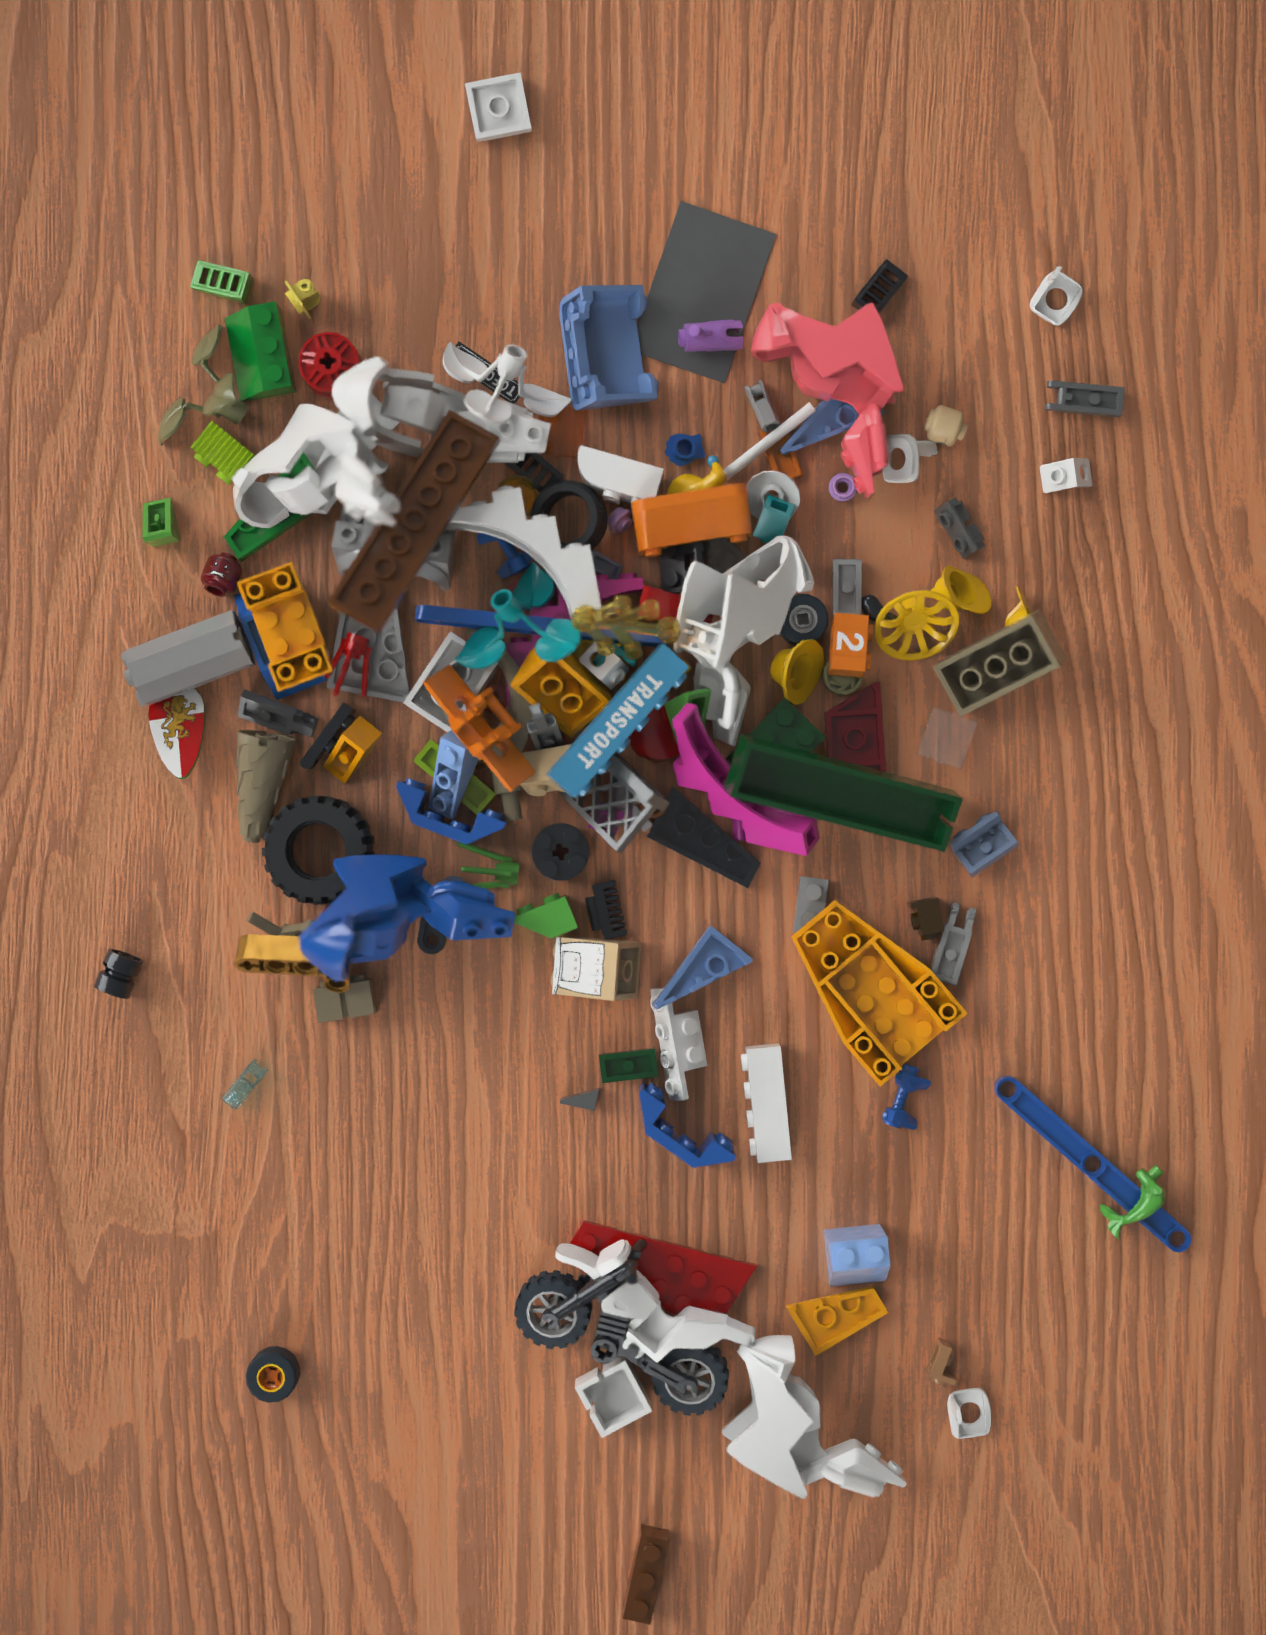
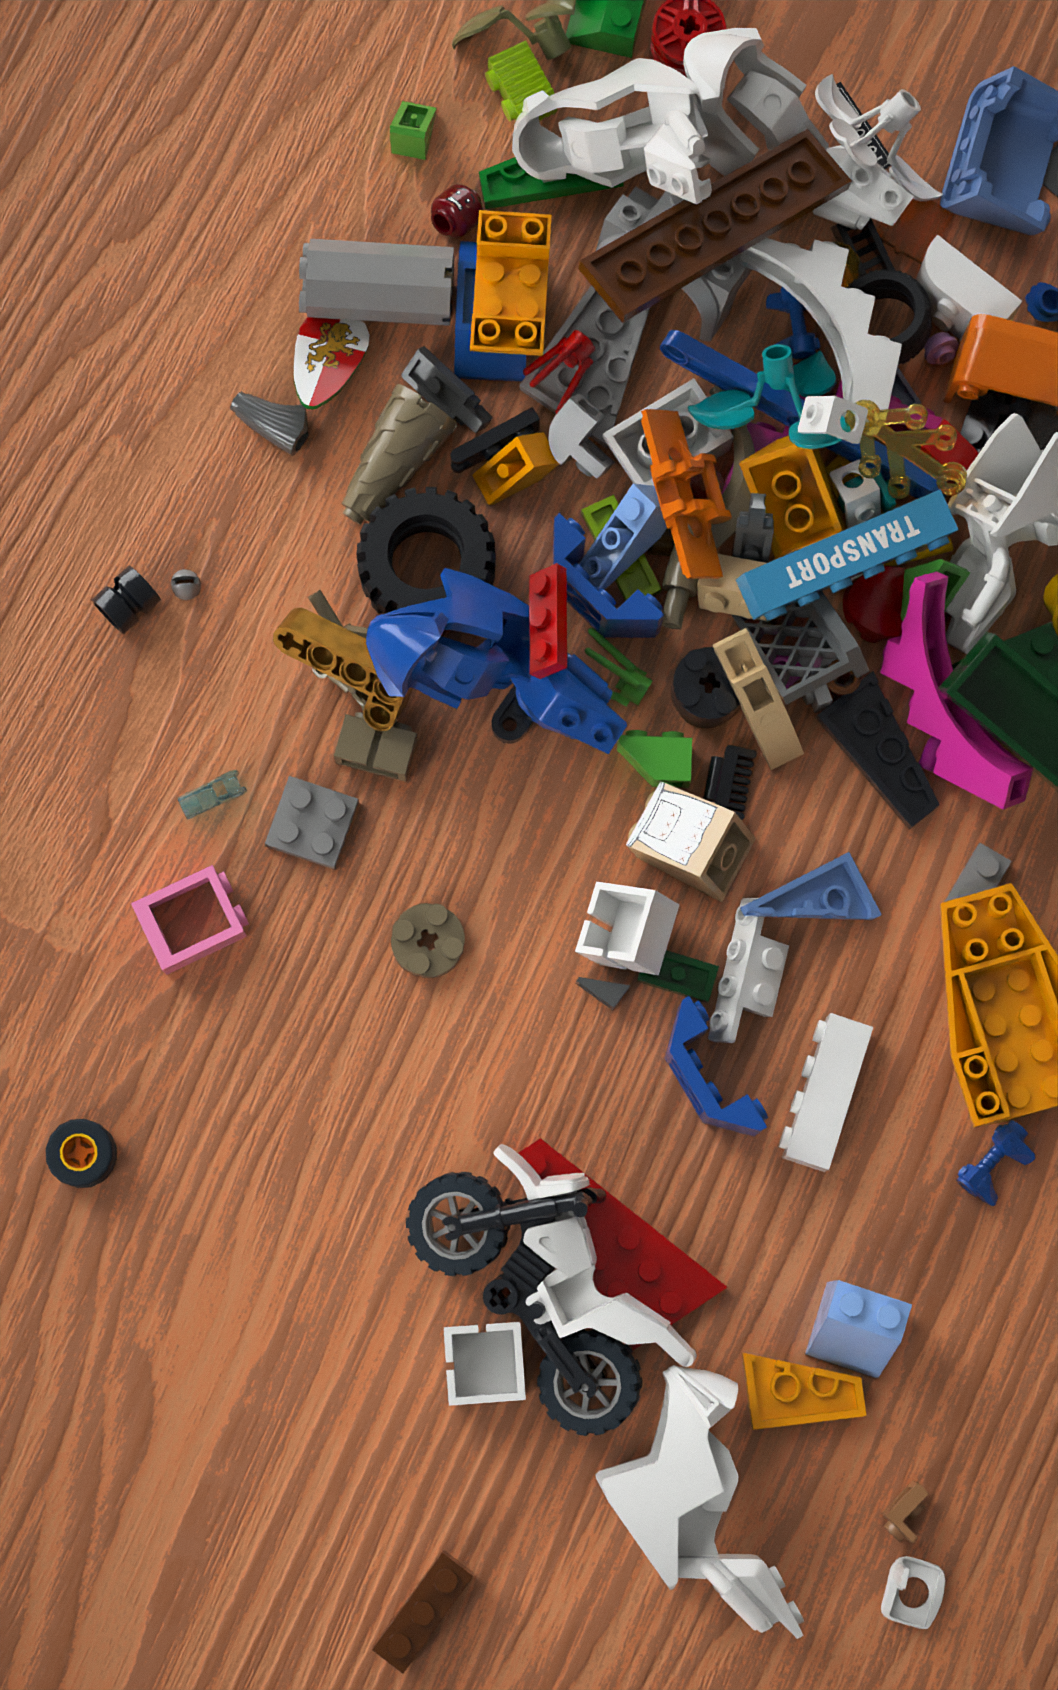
camera: 20 degrees right, 10 degrees down
(159, 945) = (185, 591): none -> light grey hinge
(162, 793) = (279, 424): none -> dark grey piece
(252, 1200) = (155, 936): none -> bright pink window
(324, 1071) = (311, 822): none -> light grey plate
(381, 712) = (570, 436): none -> light grey brick
(425, 867) = (548, 621): none -> red plate
(443, 1102) = (420, 960): none -> dark tan plate
(555, 634) = (823, 416): none -> white bracket
(589, 1054) = (640, 929): none -> white piece
(596, 851) = (758, 699): none -> tan slope

